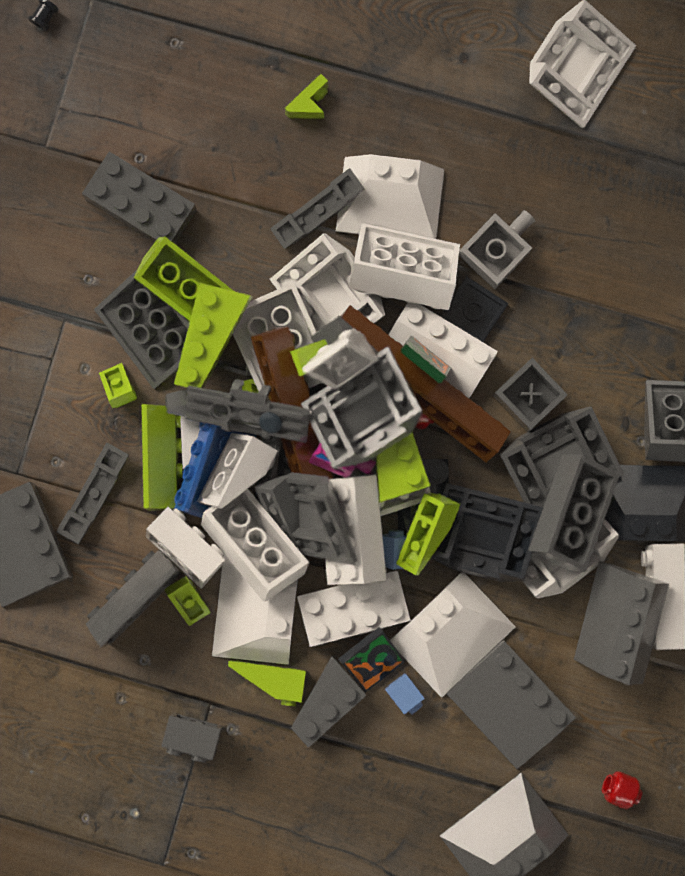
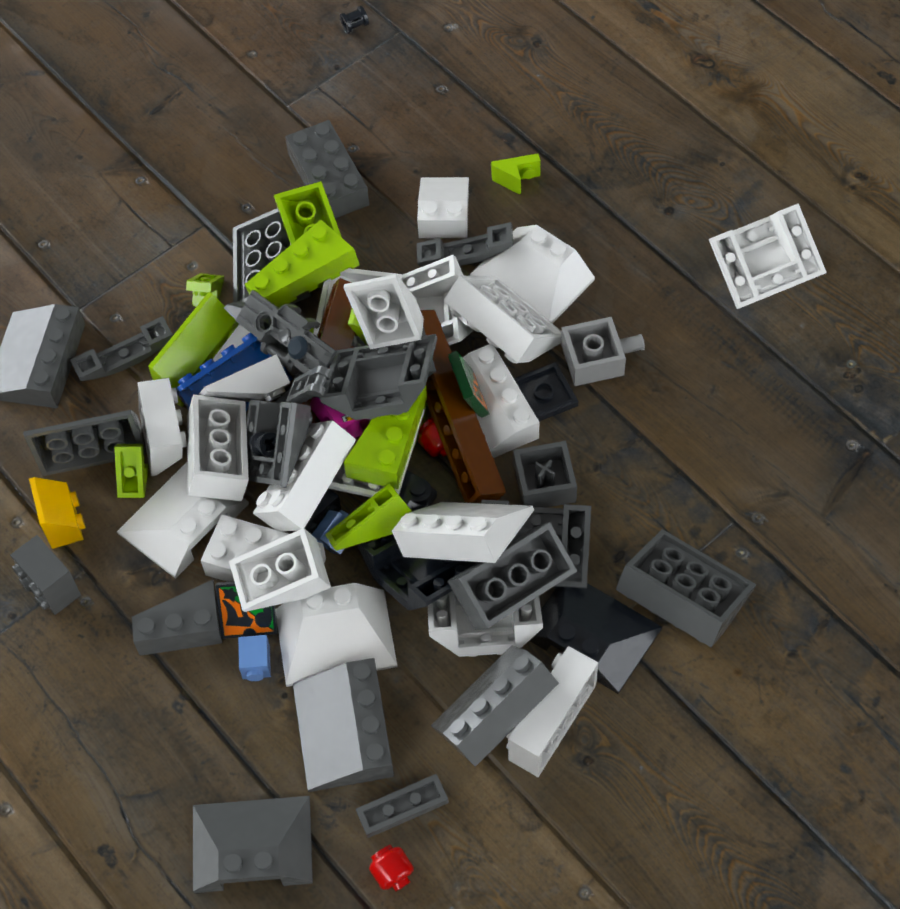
camera: 40 degrees right, 25 degrees down
(156, 674) = (57, 511): none -> yellow slope
(266, 173) = (443, 207): none -> white slope
(278, 682) = (154, 579): lime slope -> none
(298, 522) = (257, 443): none -> black bush
(311, 459) = (309, 385): none -> dark grey plate
(389, 625) = (280, 572): none -> white slope
(511, 497) = (460, 531): none -> white slope
(597, 737) = (402, 805): none -> dark grey plate

